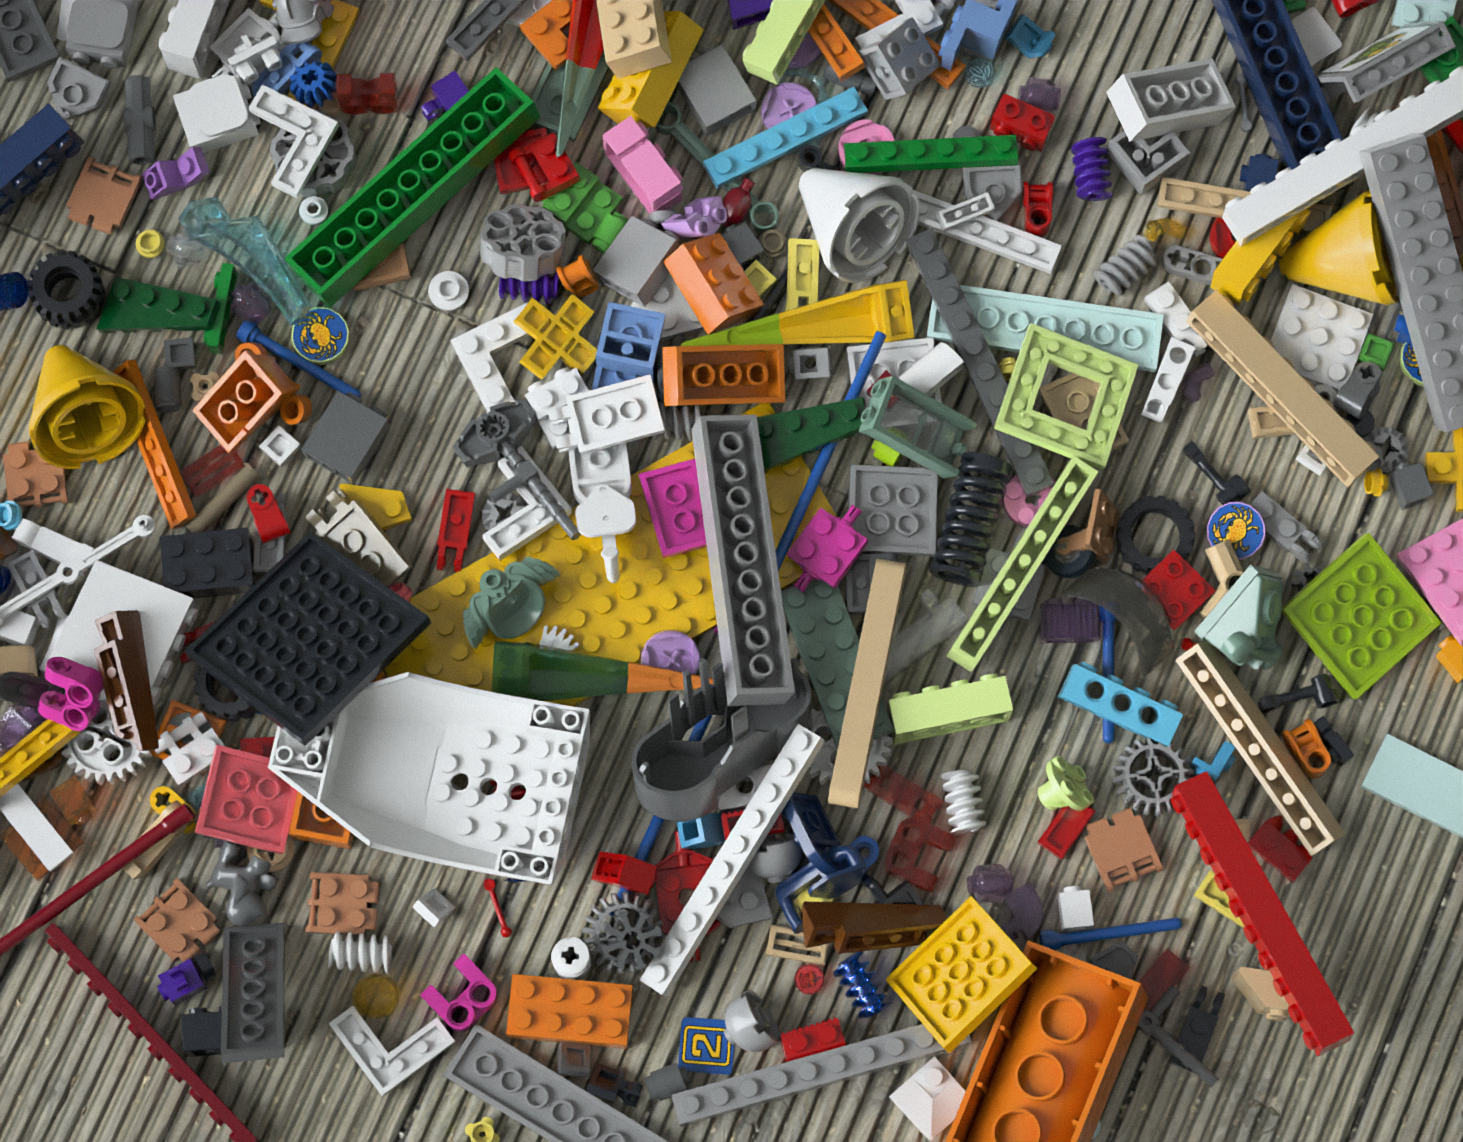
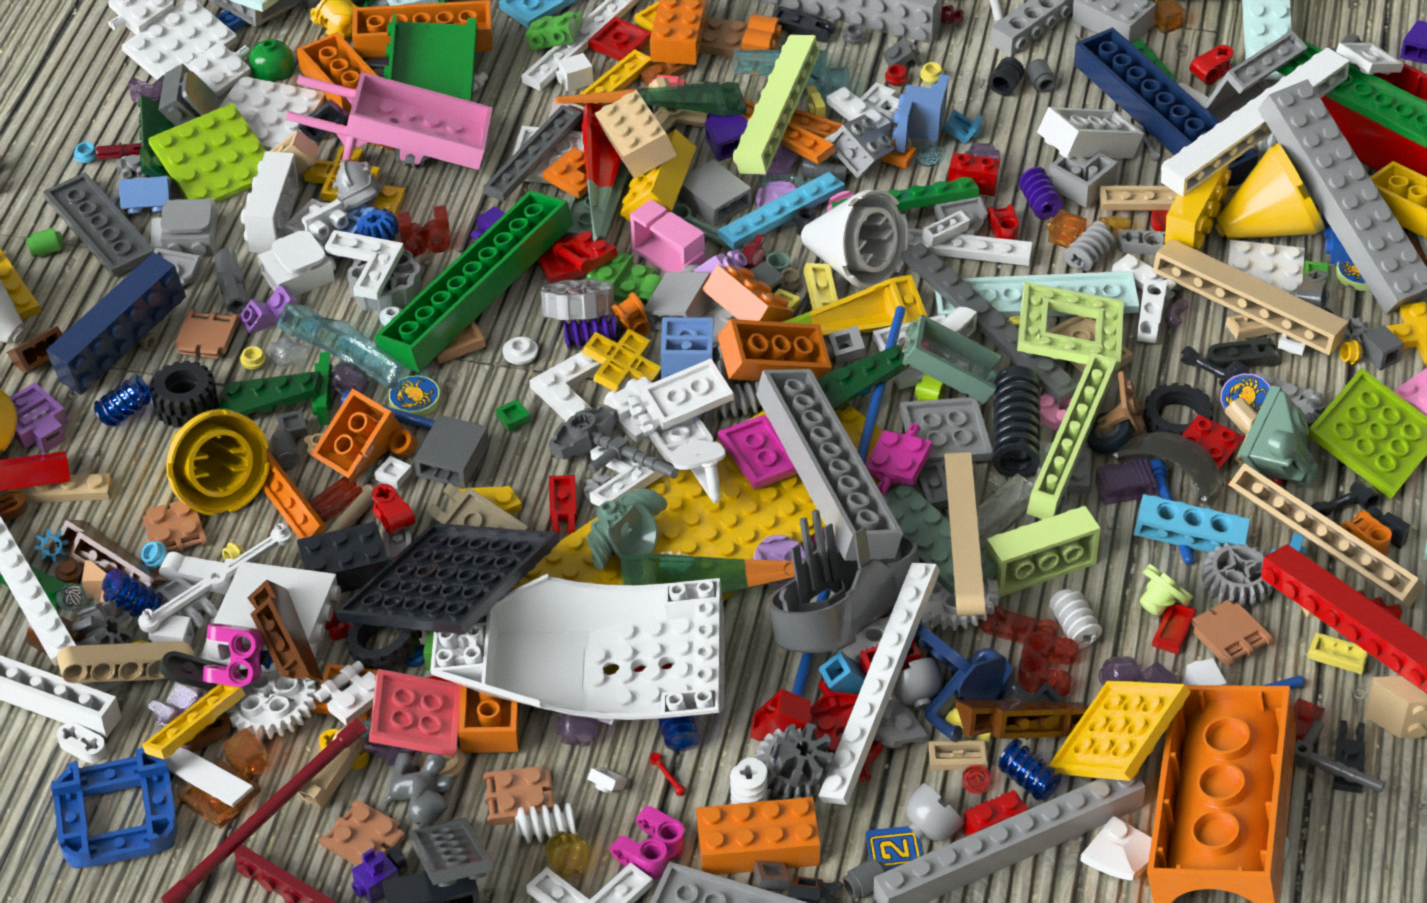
camera: 10 degrees left, 30 degrees down
(94, 528) = (232, 551): none -> light yellow plate
(423, 389) = (512, 415): none -> green plate
(1106, 232) = (1065, 228): none -> clear orange brick
(1253, 461) = (1245, 352): none -> pearl dark grey plate

